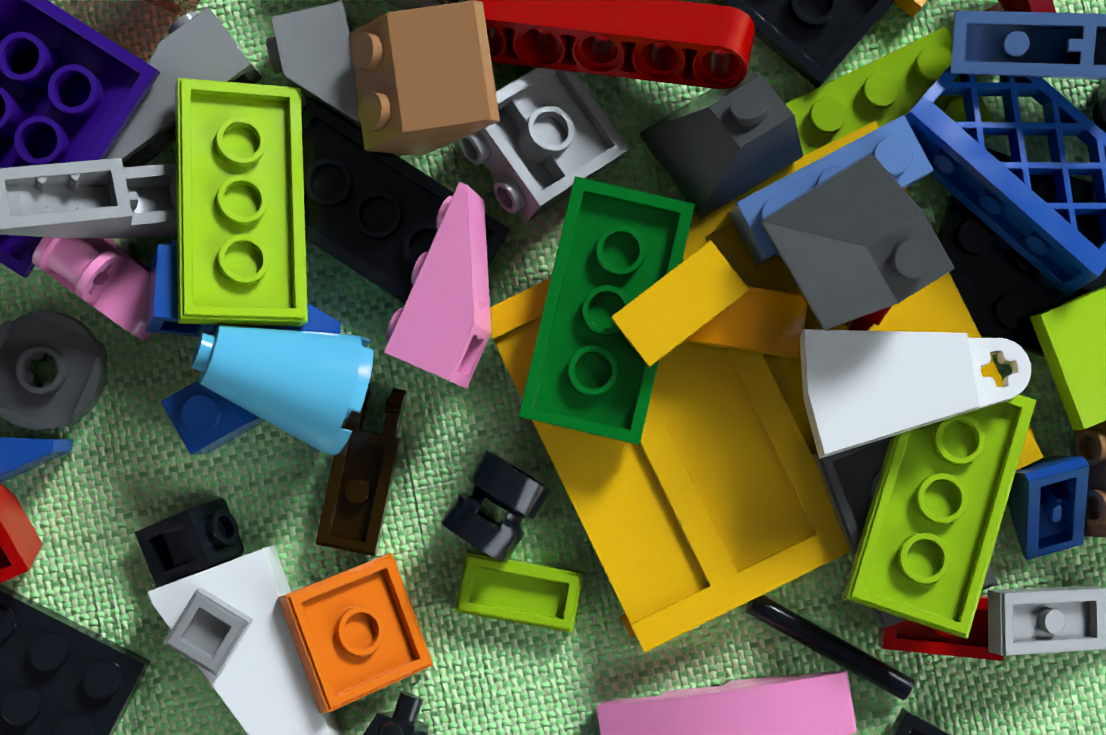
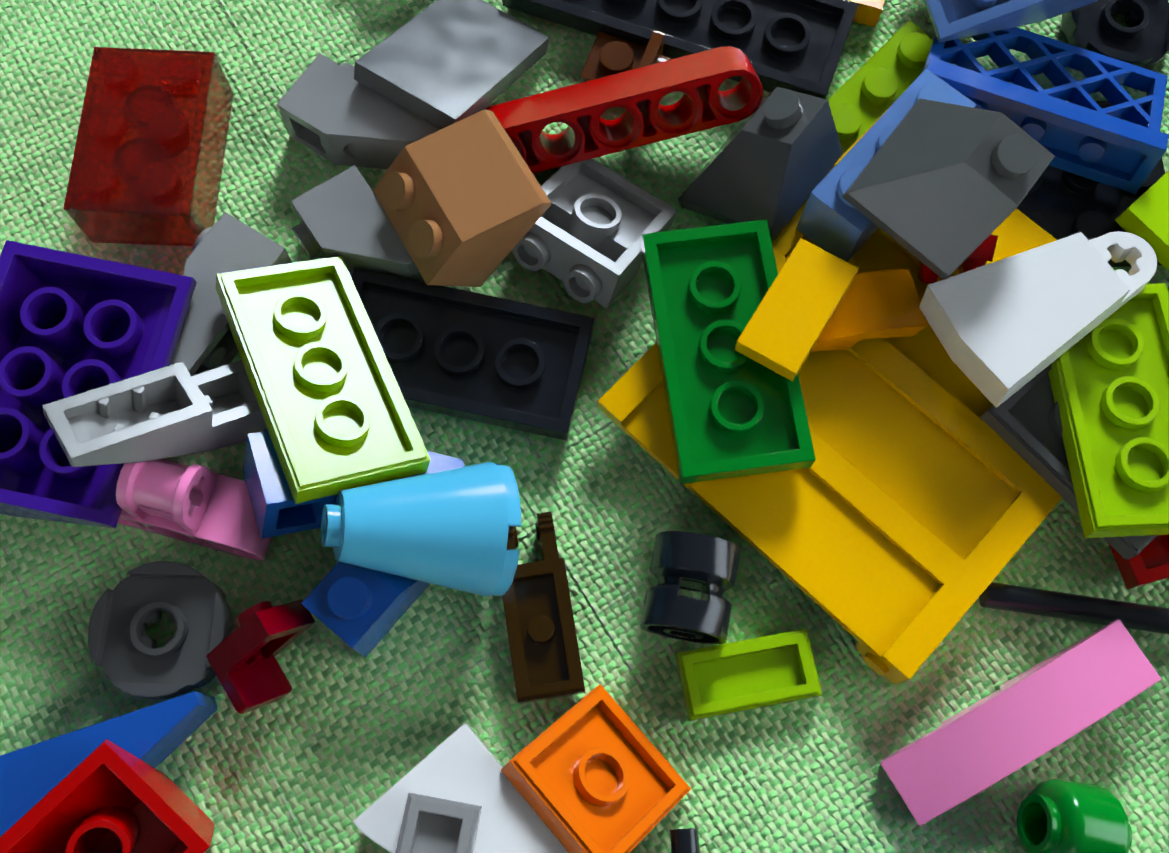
camera: 25 degrees left, 15 degrees down
(106, 428) = (247, 656): none -> dark red bracket
(190, 541) = (377, 753): black bracket -> none
(449, 304) = (567, 412): bright pink slope -> none

